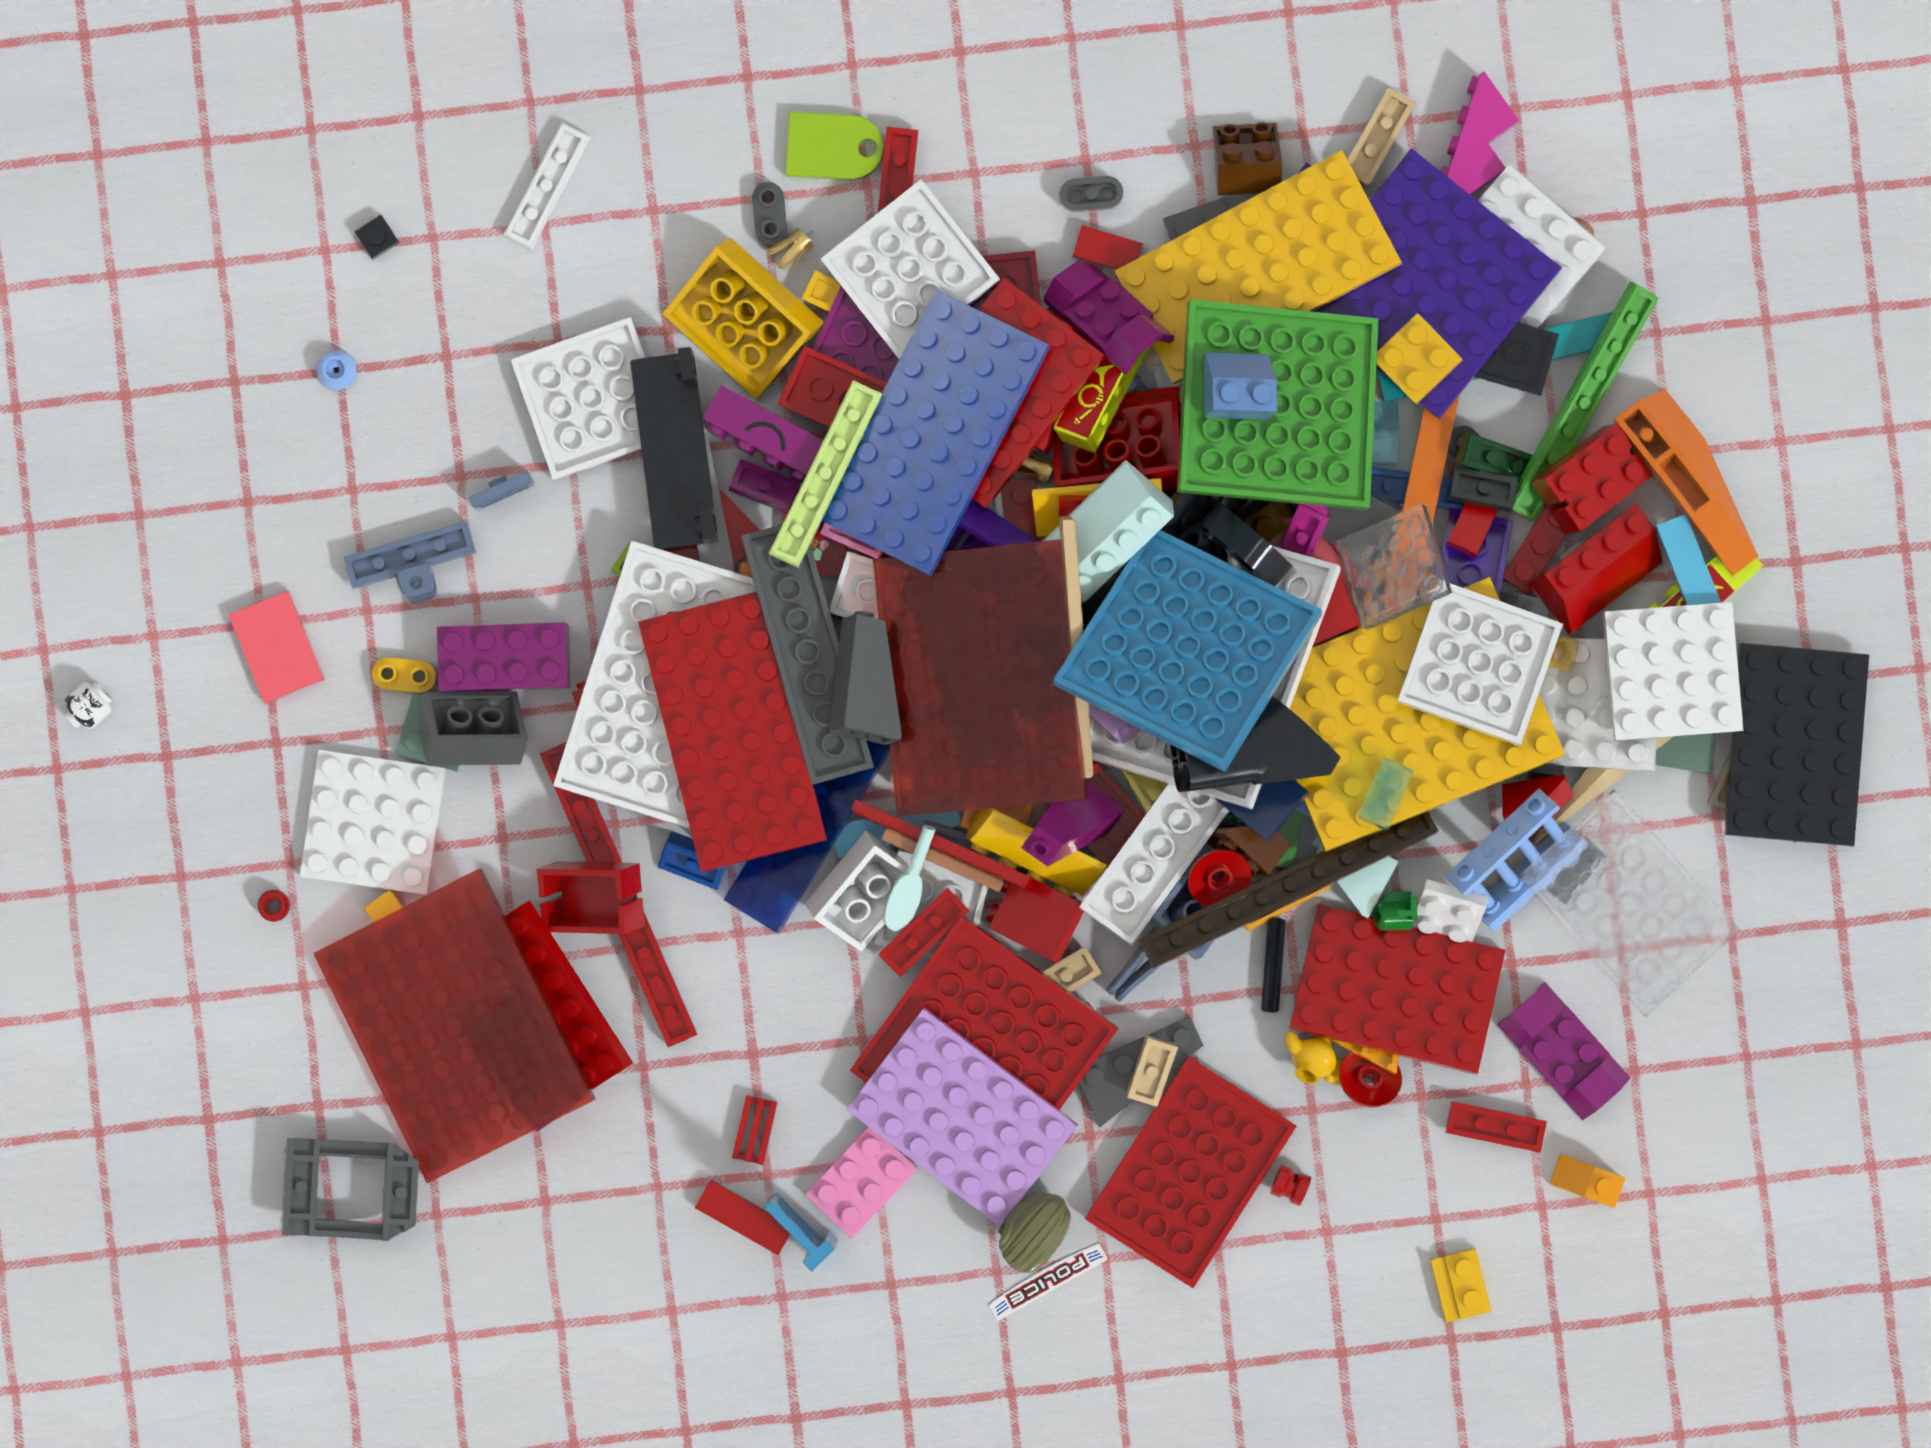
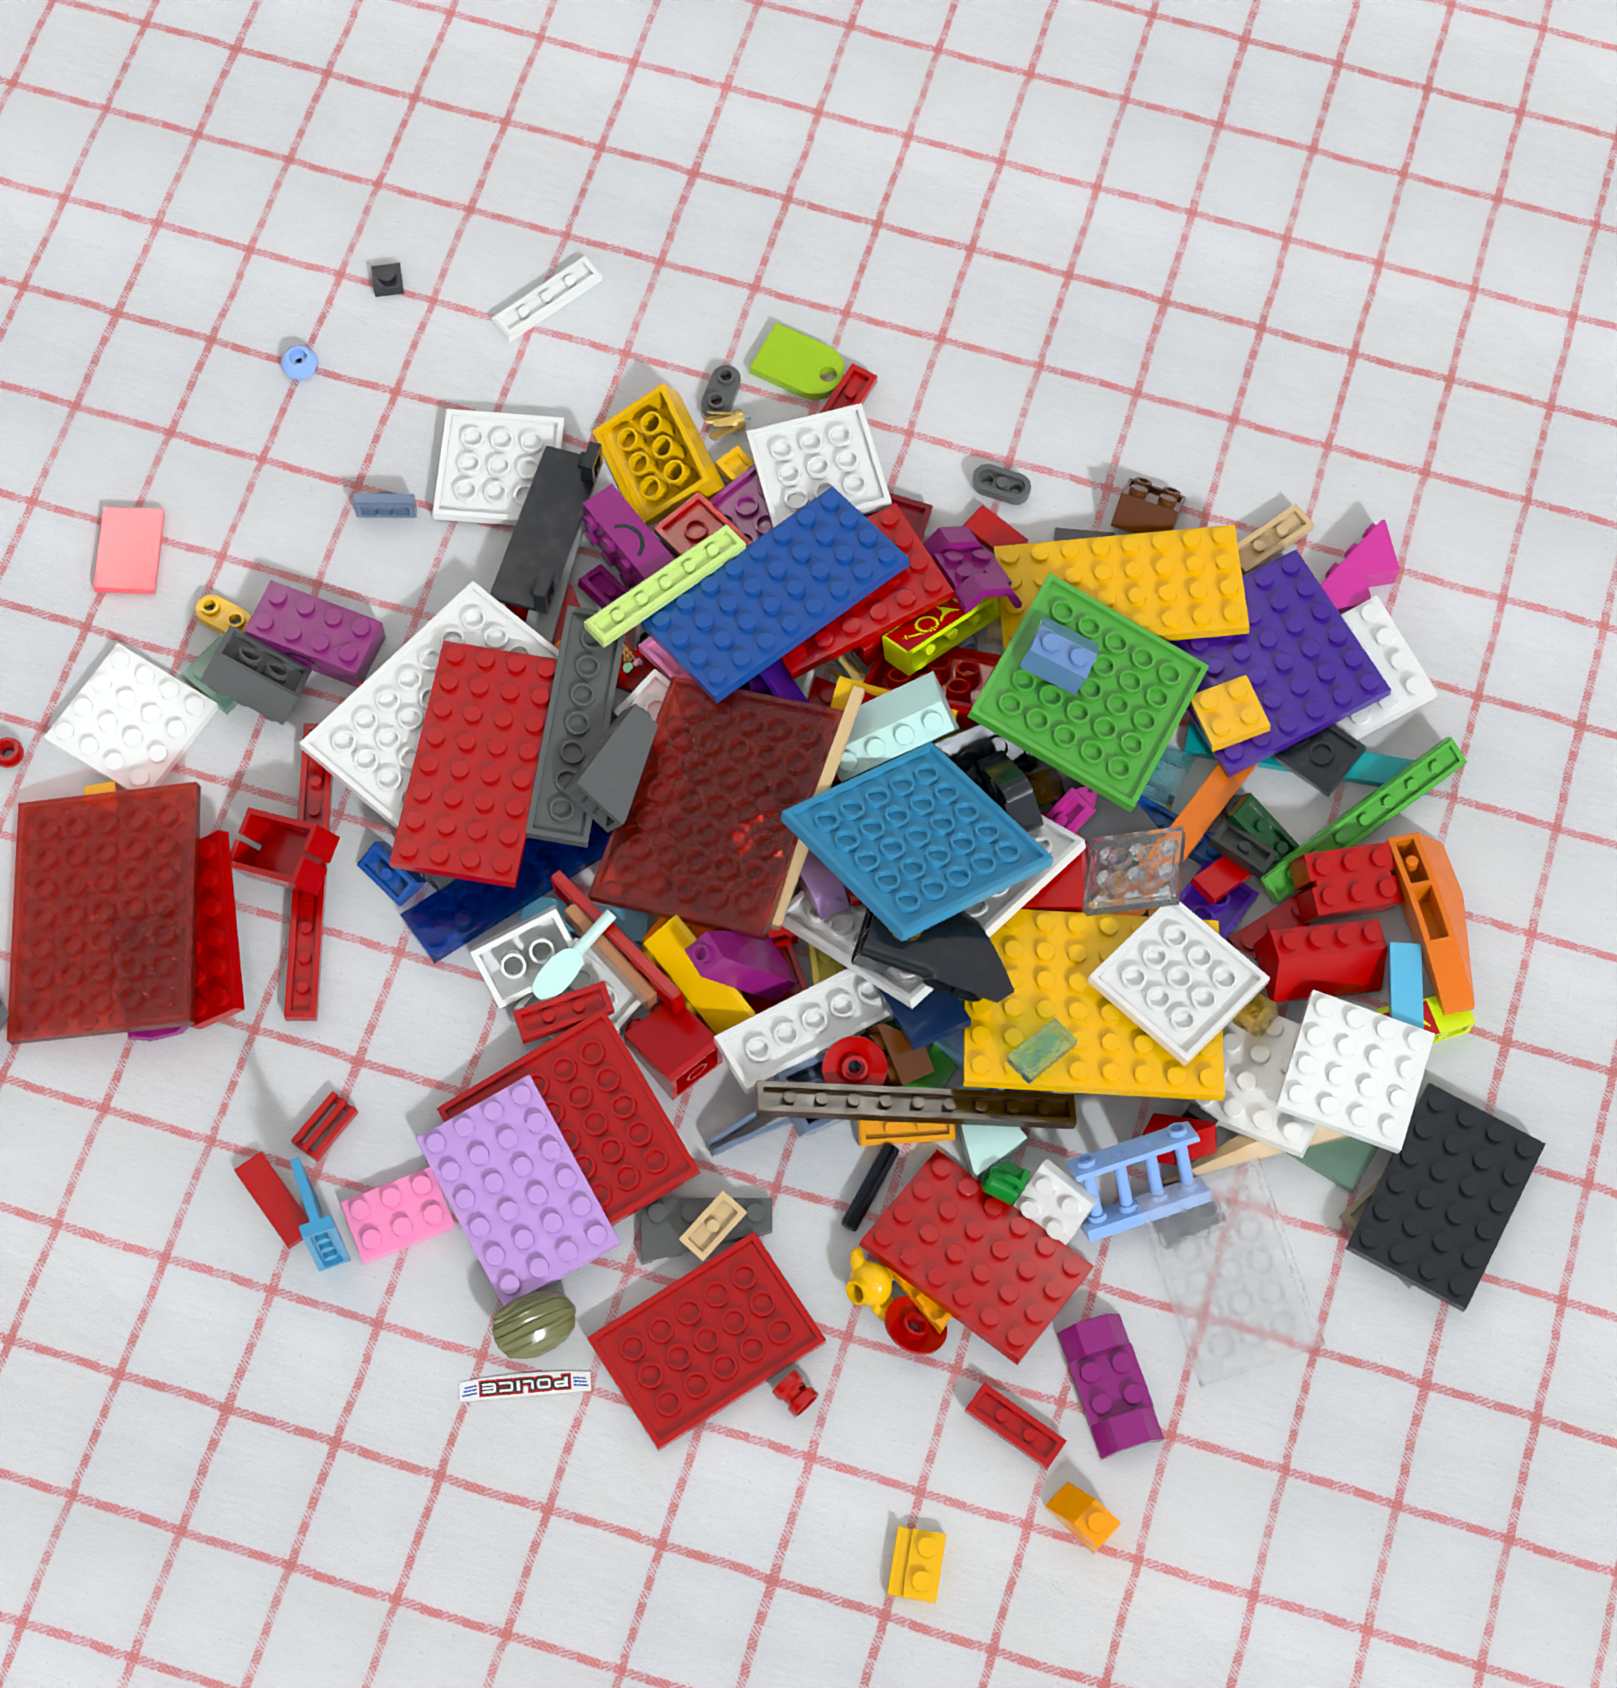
camera: 20 degrees right, 20 degrees down
(411, 560) = (279, 528): sand blue plate -> none
(1074, 970) = (685, 1110): tan plate -> none

